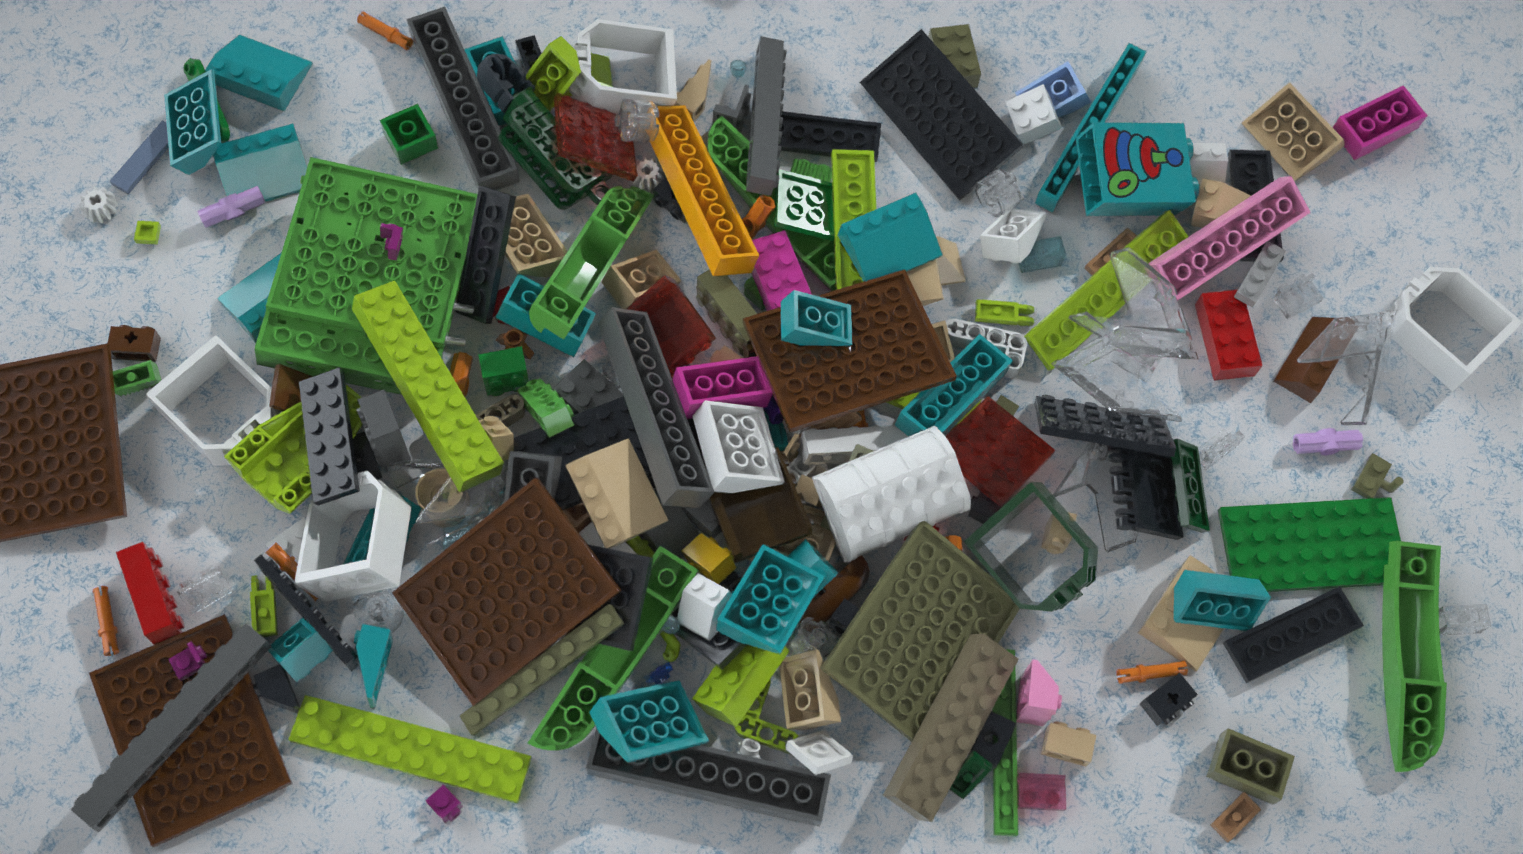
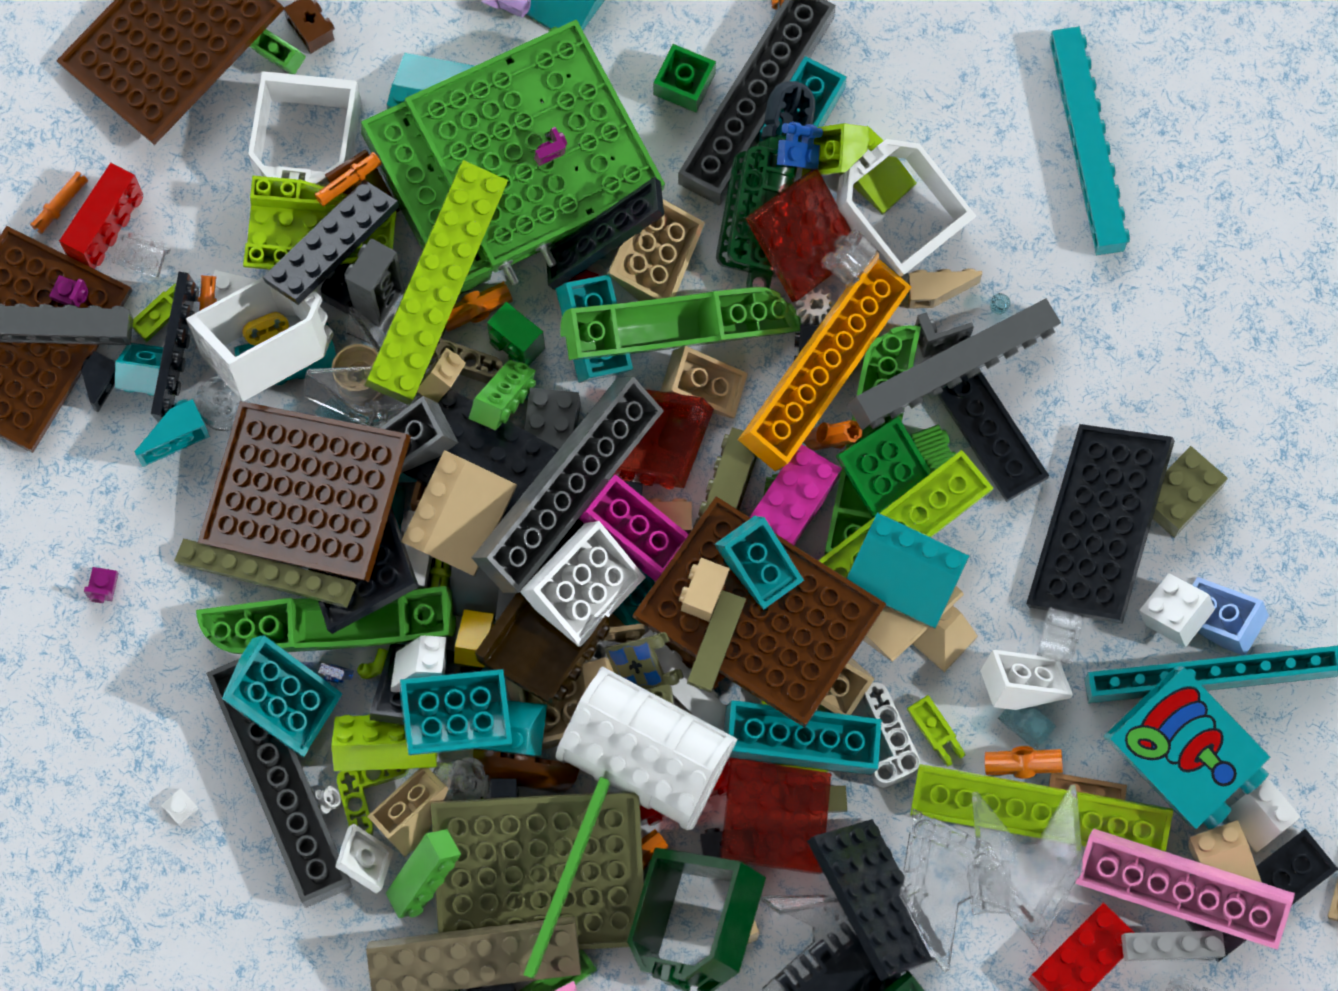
camera: 60 degrees right, 5 degrees up
(289, 383) = (349, 178): none -> orange pin
(346, 540) = (265, 327): none -> yellow beam
(410, 748) = (129, 523): lime plate -> none
(515, 338) = (550, 325): dark orange rock -> none
(527, 52) = (853, 110): black brick -> none
(535, 91) = (796, 153): none -> blue plate
(671, 626) = (386, 650): clear light blue hinge -> none
(810, 368) = (704, 589): none -> tan brick
(825, 452) = (640, 664): none -> olive flag
(853, 388) = (716, 641): none -> olive tile
(868, 714) = (423, 873): none -> bright green brick
(952, 611) = (567, 878): none -> bright green tile
(1067, 275) = (1023, 762): none -> orange piece

